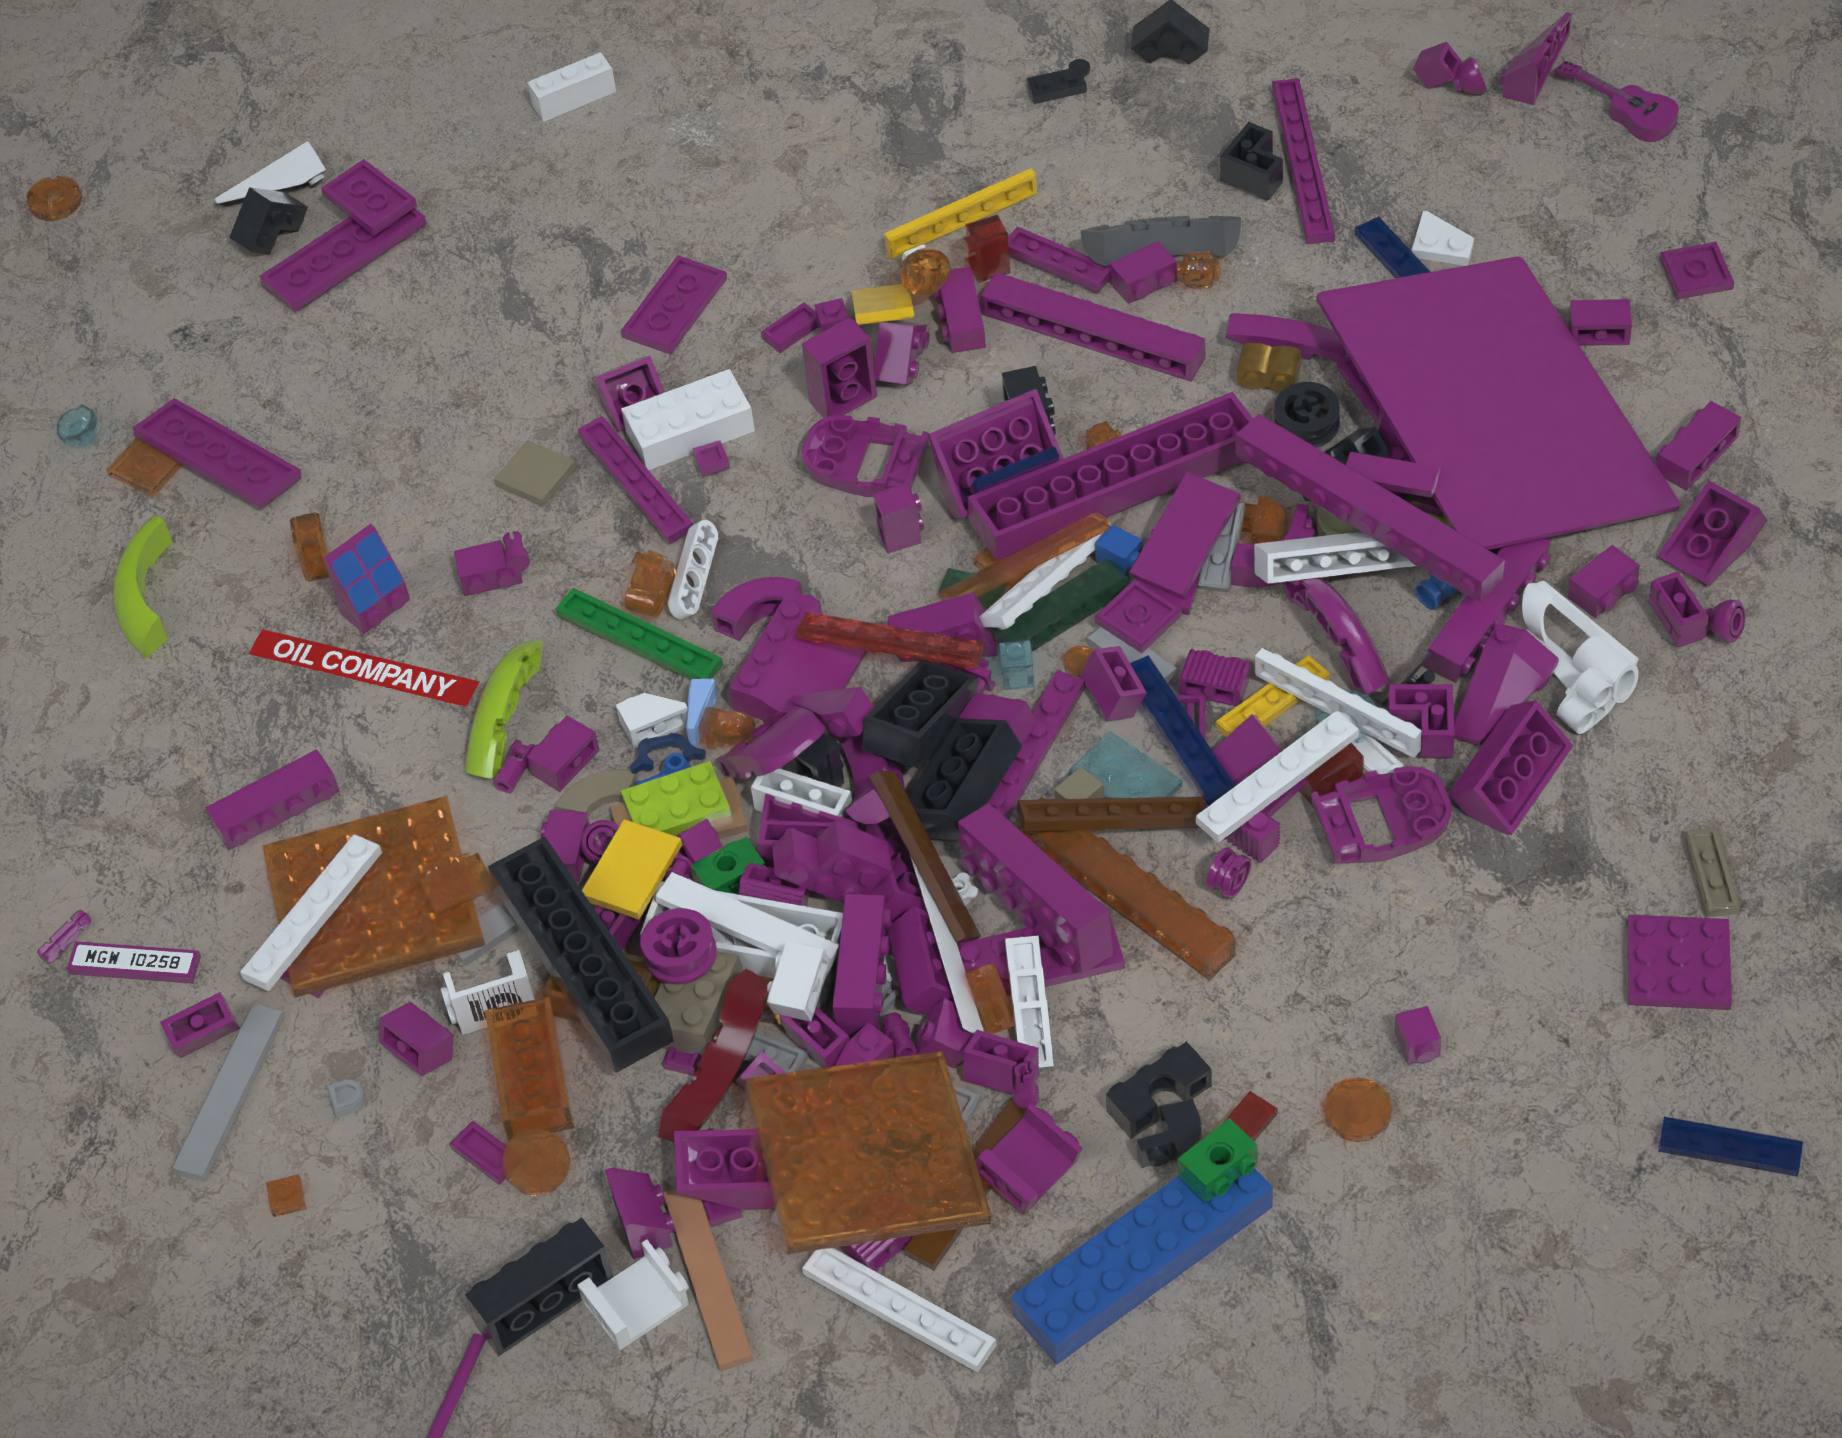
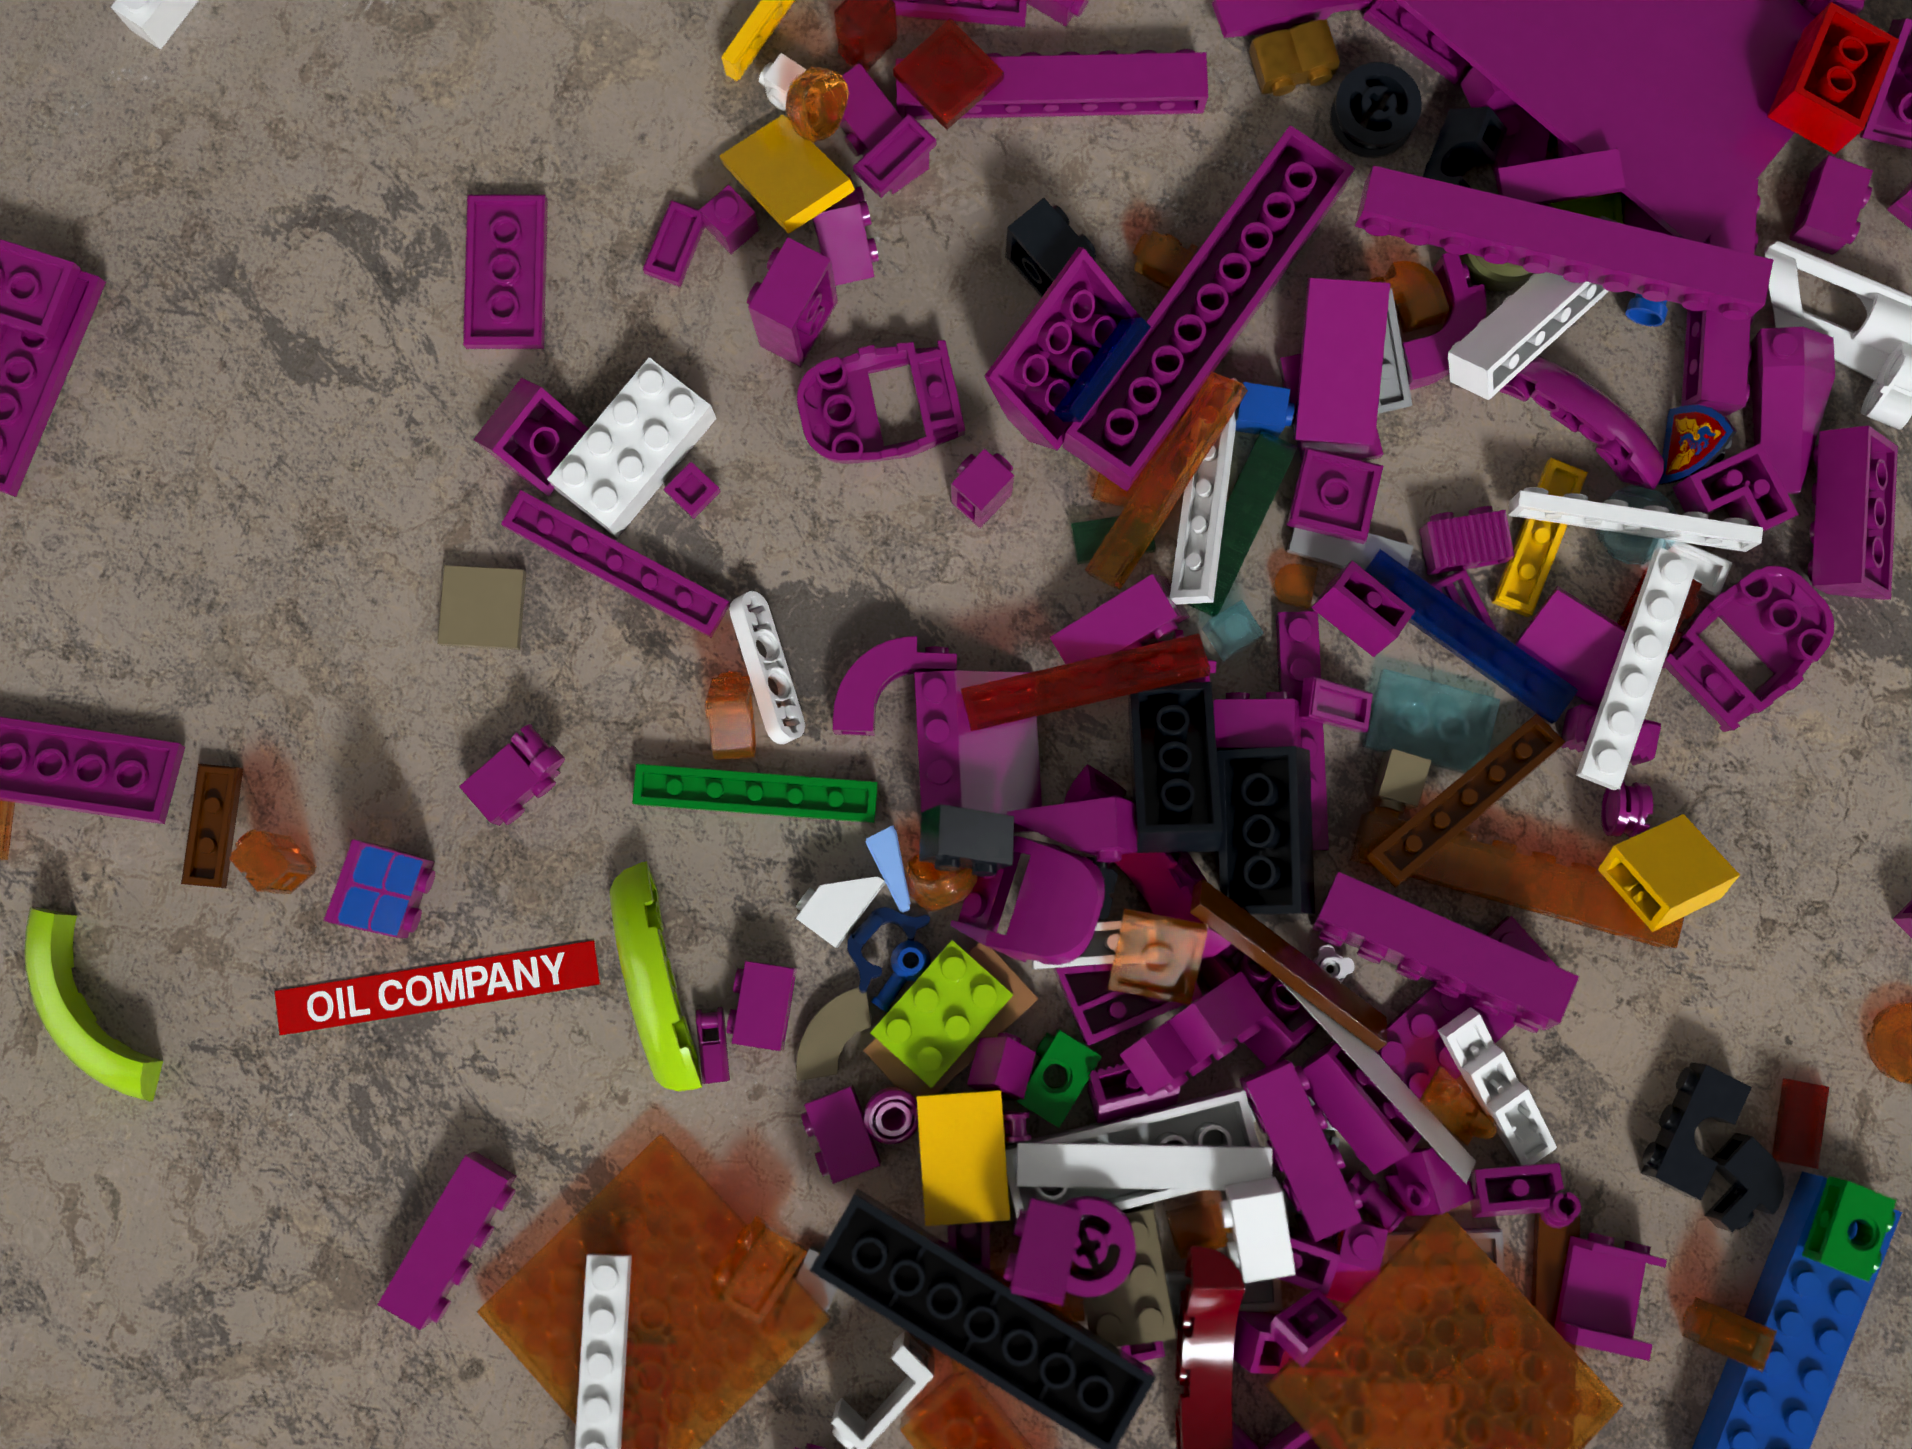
camera: 35 degrees left, 30 degrees up
(277, 534) = (212, 826): none -> reddish brown tile
(644, 912) = (1044, 1251): none -> magenta brick
(753, 689) = (966, 839): none -> black brick
(791, 1053) = (1307, 1326): none -> magenta slope
(833, 796) = (1157, 956): none -> clear orange tile
(959, 320) = (894, 155): none -> magenta tile
(1021, 287) = (948, 74): none -> clear red plate
(1060, 732) = (1335, 704): none -> magenta tile
(1097, 1211) = (1728, 1333): none -> clear orange slope
(1229, 909) = (1668, 872): none -> yellow brick
(1633, 495) = (1833, 78): none -> red brick

